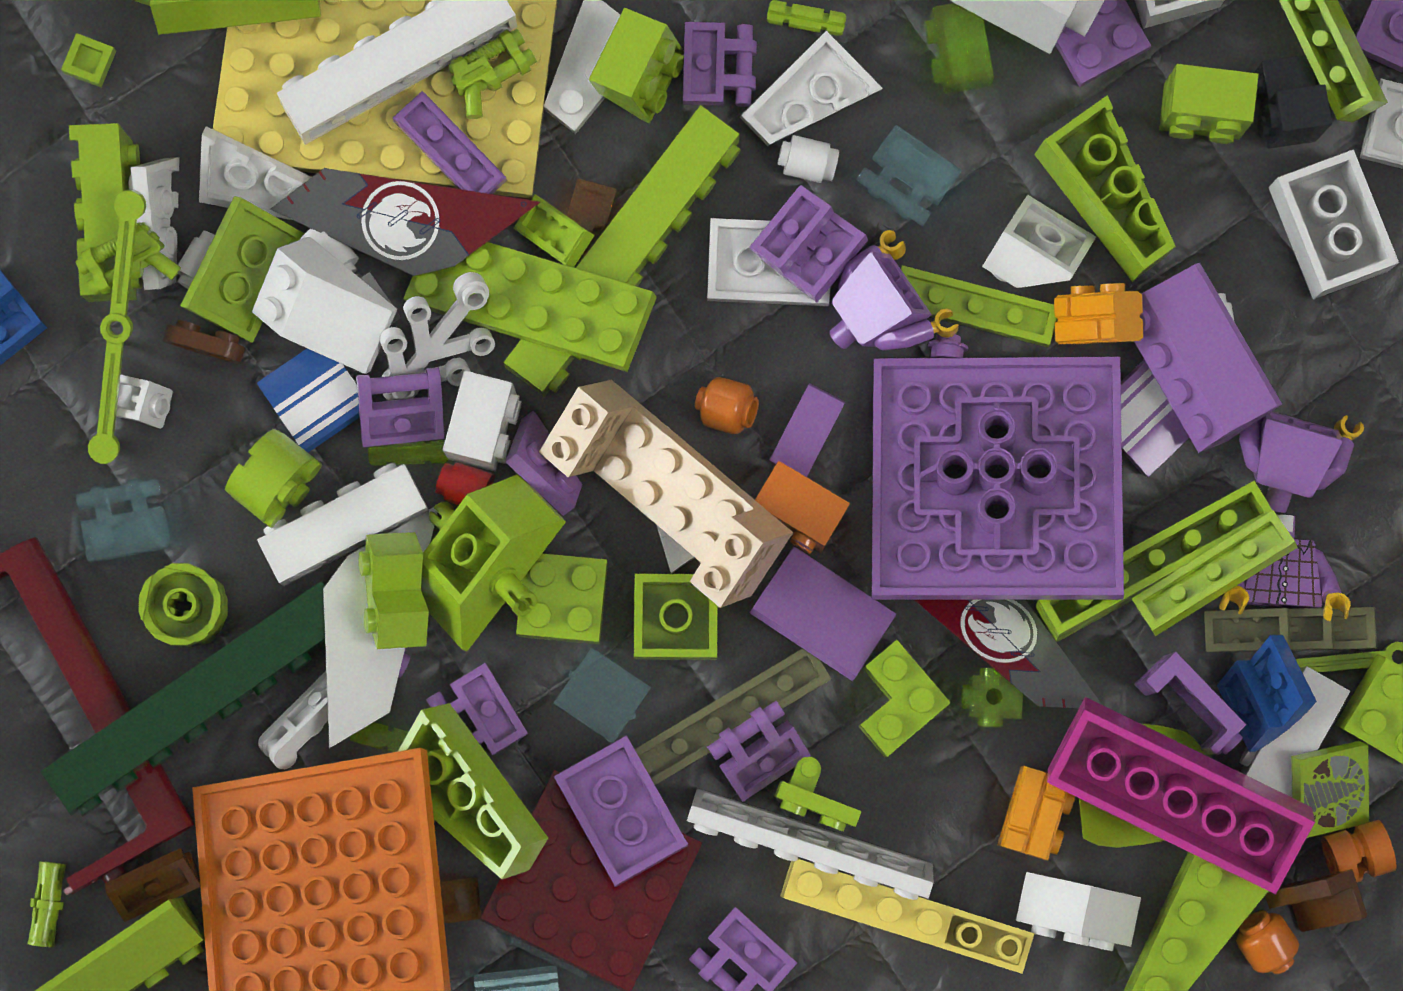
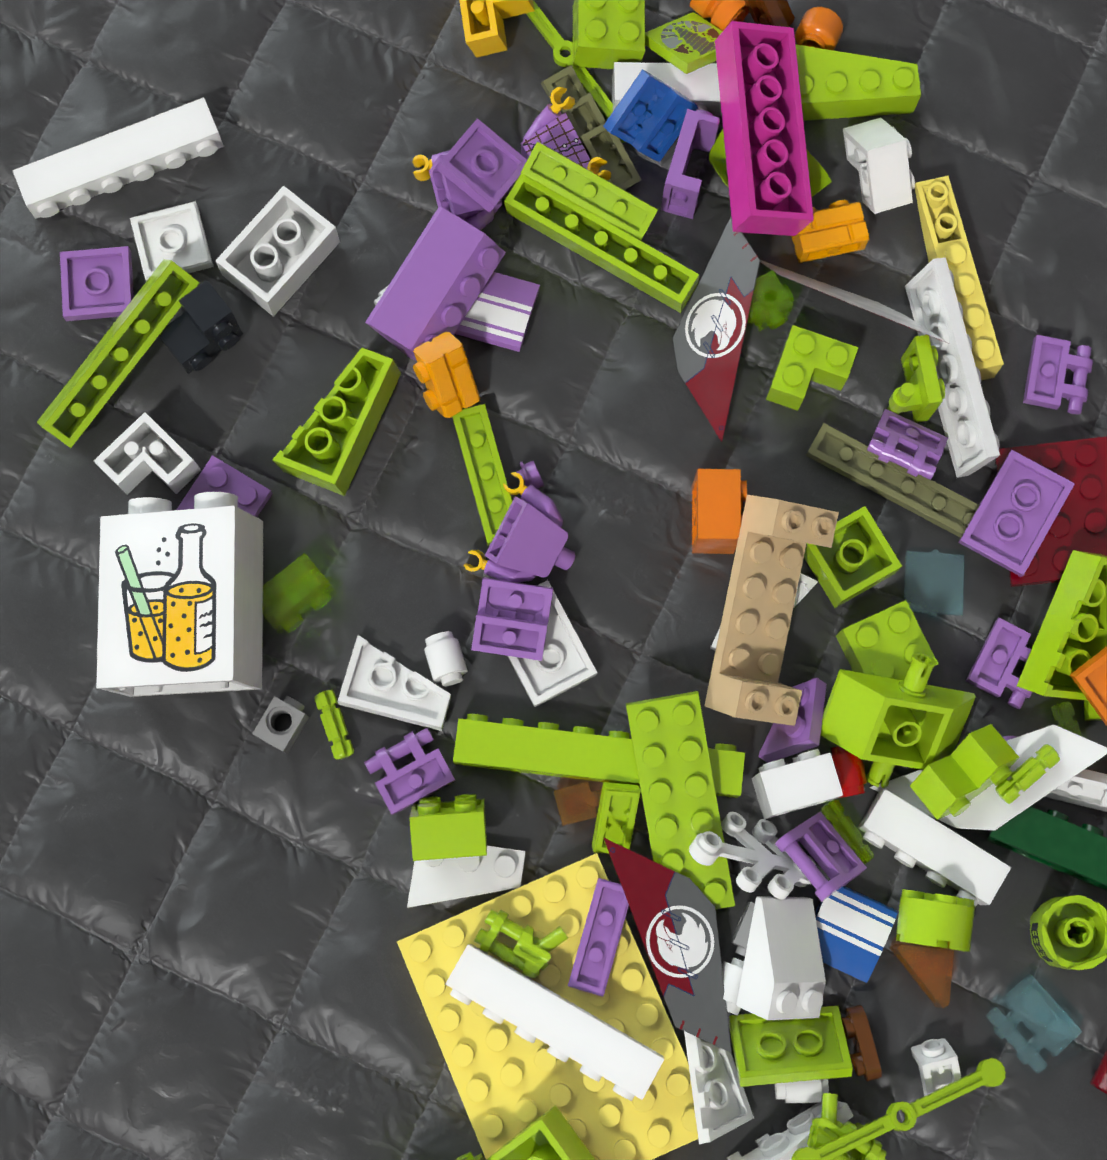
camera: 120 degrees left, 5 degrees down
(230, 445) = (930, 970): none -> clear orange slope
(356, 651) = (1027, 773): none -> lime axle
(727, 405) = (669, 612): orange head -> none
(808, 429) = (651, 543): medium lavender slope -> none
(823, 613) = (781, 451): medium lavender tile -> none
(914, 165) = (403, 574): clear light blue plate -> none
(944, 786) = (851, 298): none -> white sticker
(1038, 247) = (415, 451): white slope -> none
(1059, 529) = (678, 398): medium lavender plate -> none
(1208, 103) = (233, 379): lime brick -> none
(1305, 479) = (482, 165): none -> medium lavender plate

